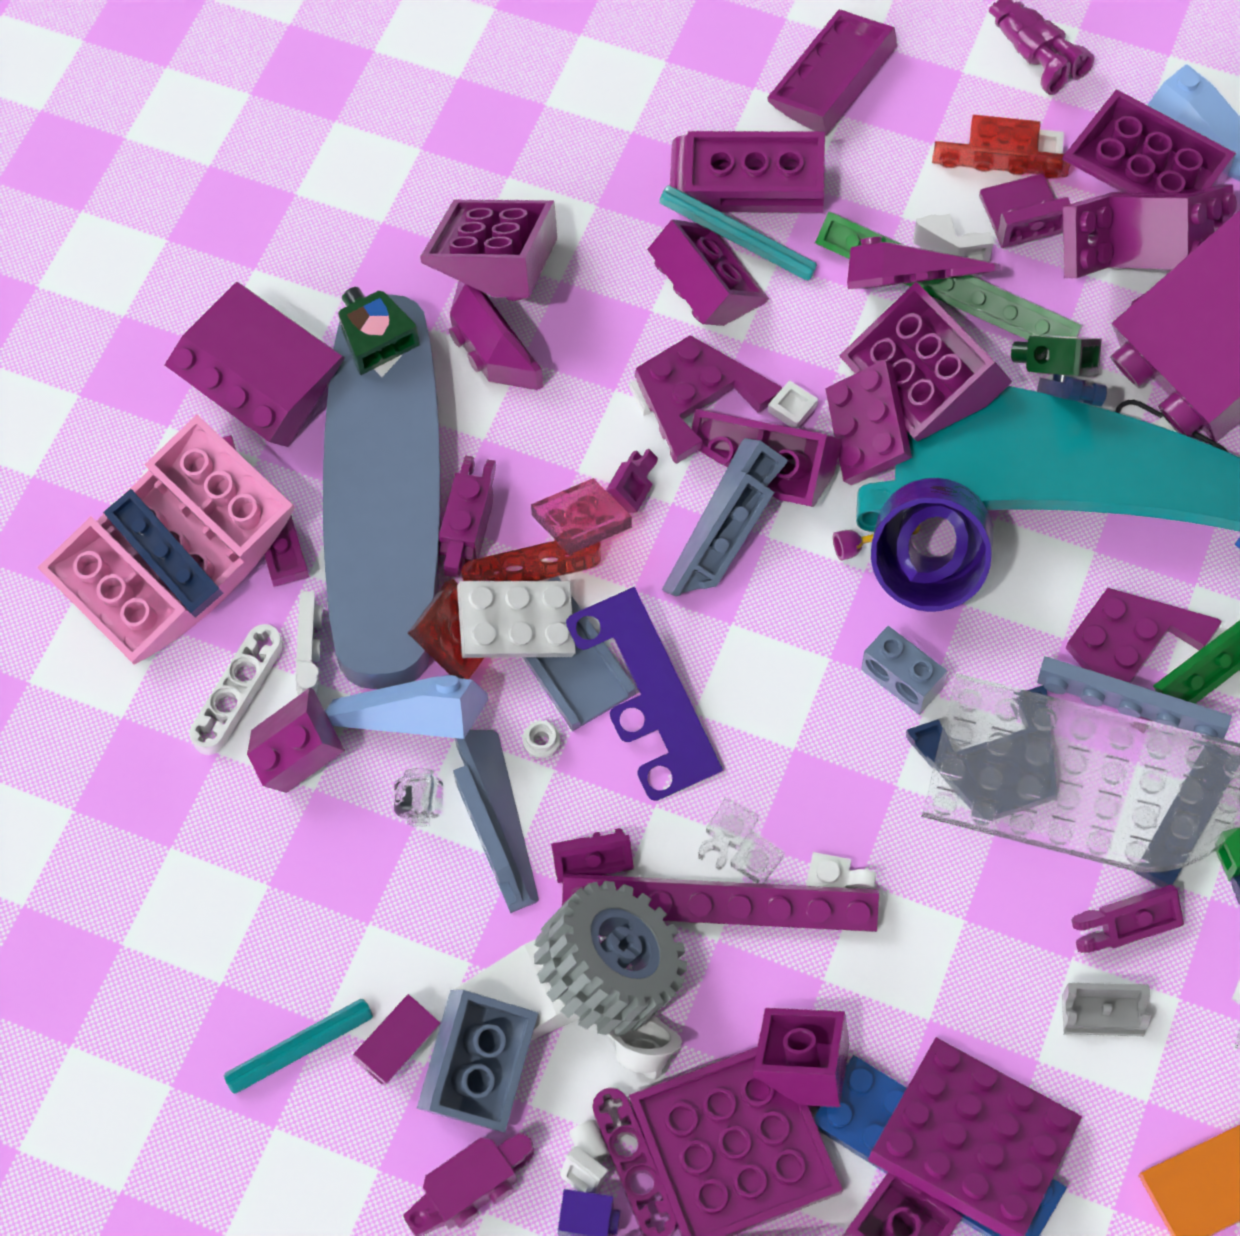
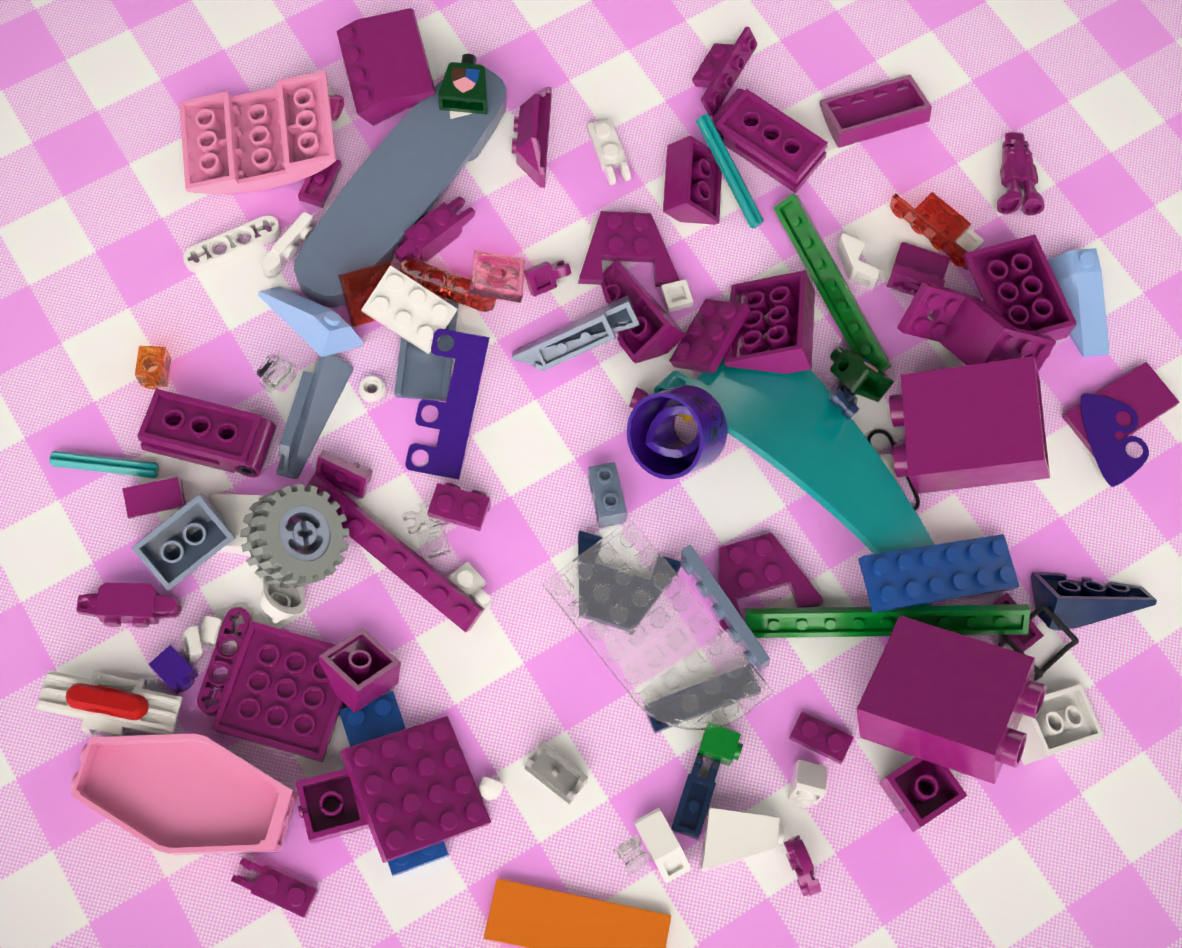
camera: 30 degrees right, 5 degrees up
(163, 553) = (247, 138): dark blue plate -> none
(260, 877) = (153, 356): none -> clear orange brick
(293, 743) = (232, 295): magenta slope -> none
(440, 884) = (206, 433): none -> magenta hinge
(494, 244) = (574, 82): magenta slope -> none
(583, 299) = (608, 149): none -> white hinge
(632, 131) = (723, 68): none -> magenta bracket
(755, 796) = (459, 506): none -> magenta bracket
(893, 264) = (805, 250): magenta wedge -> none
(1050, 1080) = (490, 788): none -> white hinge
(1130, 919) = (614, 732): magenta hinge -> none

